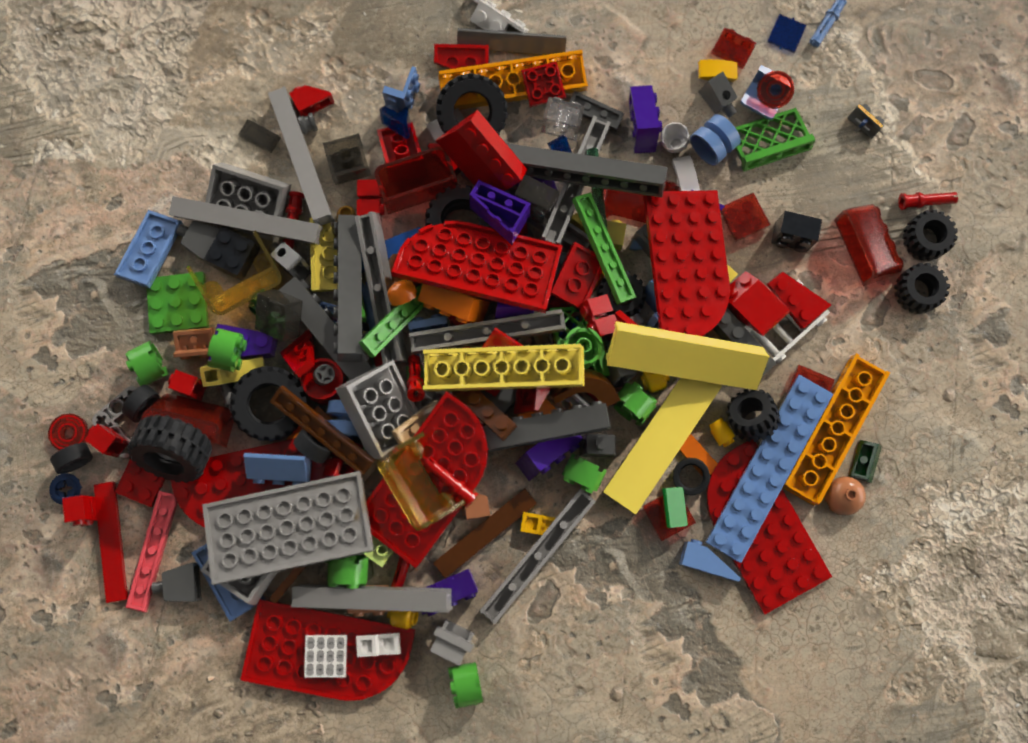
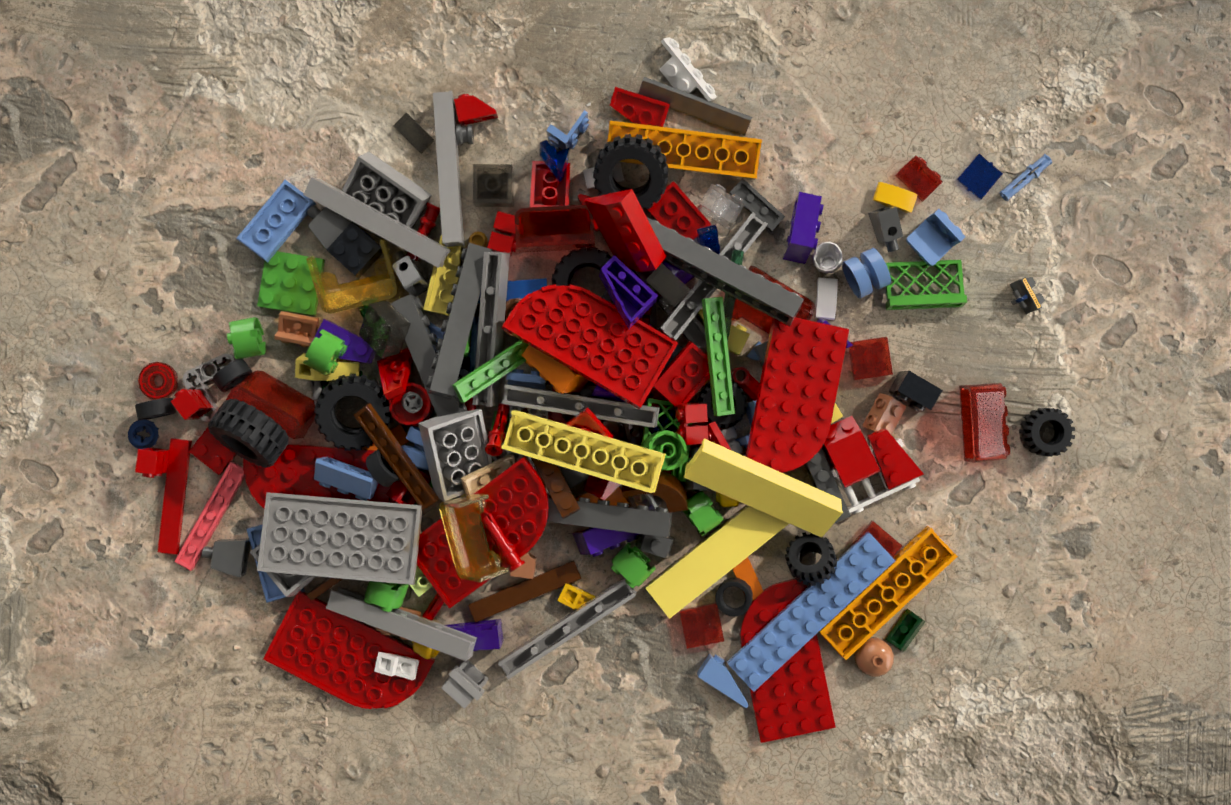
camera: 20 degrees right, 10 degrees up
(186, 385) = (279, 370): red piece -> none
(325, 656) = (346, 661): tile -> none
(401, 292) = (507, 344): orange hair -> none
(465, 685) = (466, 725): bright green brick -> none
(524, 132) = (678, 212): none -> red plate
(542, 82) = (711, 165): red tile -> none
(641, 270) = (748, 384): none -> red piece
(675, 507) = (708, 623): slope -> none
(722, 432) = (777, 564): yellow brick -> none
(765, 83) = (948, 228): clear red tile -> none
(774, 260) = (884, 414): none -> nougat bracket
(919, 200) = (1050, 392): red pin -> none
(934, 281) = (1034, 485): black tyre -> none

